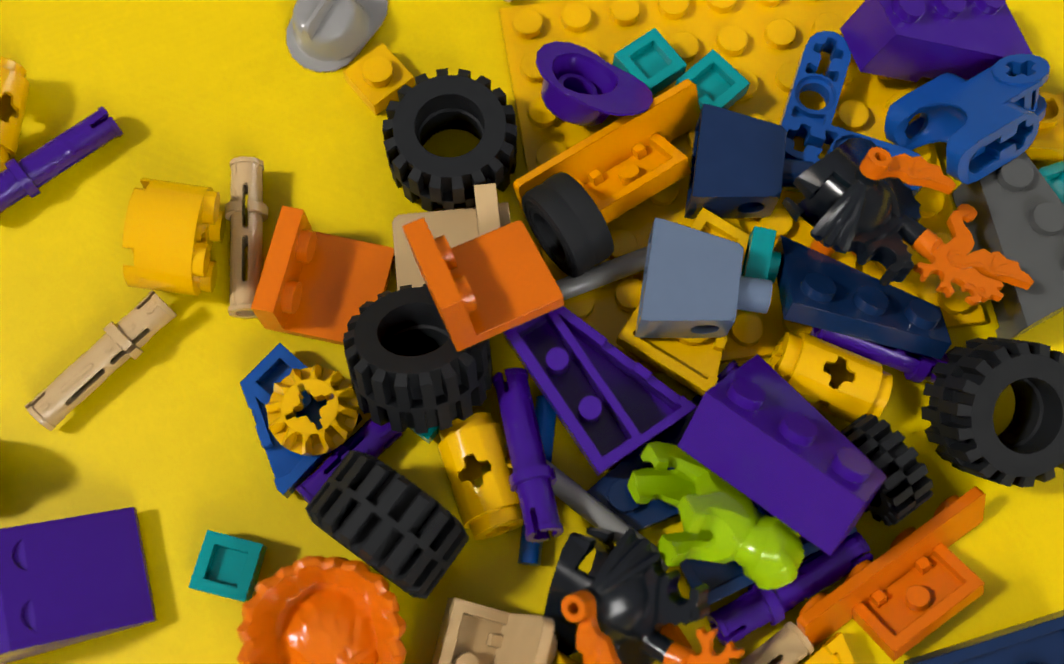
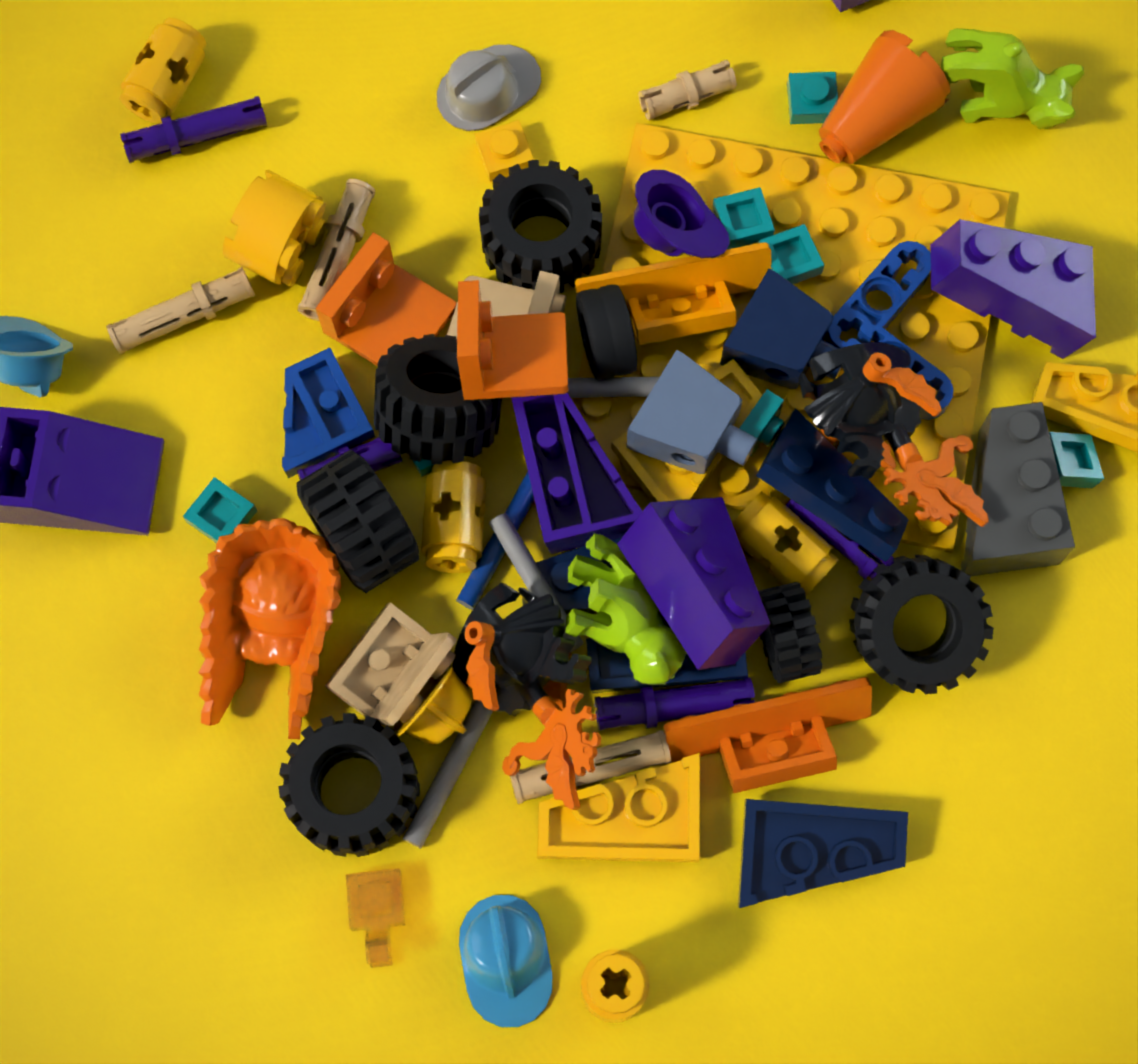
camera: 25 degrees right, 0 degrees up
(337, 416) = (352, 423): yellow gear -> none
(530, 474) = (491, 523): dark purple pin -> none
(979, 118) = (1015, 362): blue piece -> none

